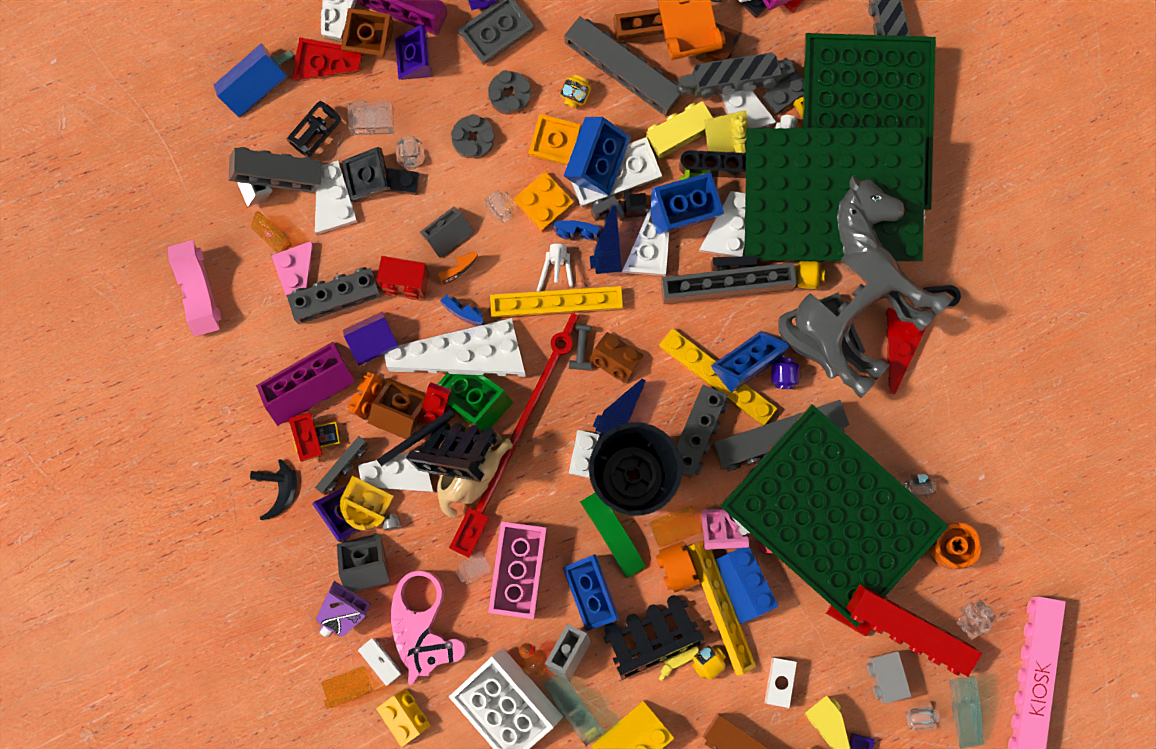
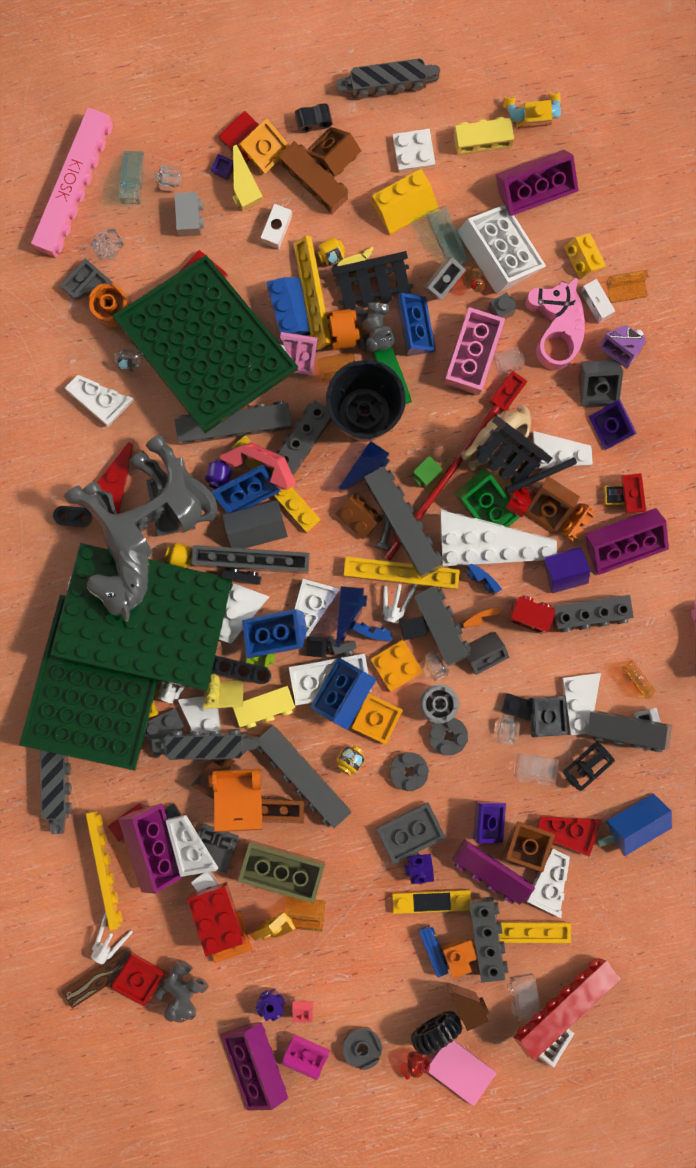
camera: 175 degrees left, 5 degrees up
(287, 487) = (653, 459): black piece -> none
(294, 267) = (623, 645): bright pink wing -> none
(342, 466) = (605, 464): dark grey plate -> none
(364, 504) = (592, 428): yellow slope -> none
(391, 522) = (571, 412): light grey hinge -> none
(489, 164) = (439, 703): none -> light grey cone
(492, 631) = (502, 306): none -> dark grey brick
(500, 249) = (442, 626): none -> dark grey brick
(531, 243) = (414, 628): none -> black brick
(548, 419) = (426, 472): none -> bright green brick
(565, 353) = (402, 522): none -> dark grey brick
(581, 454) = (401, 439): white plate -> none
(646, 580) = (371, 327): none -> dark grey animal
(712, 379) = (281, 475): none -> coral slope
(732, 324) = (255, 525): none -> dark grey slope
(914, 631) = (160, 242): red brick -> none
(941, 435) = (100, 401): none -> white wing
(990, 572) = (84, 280): none -> dark grey wing

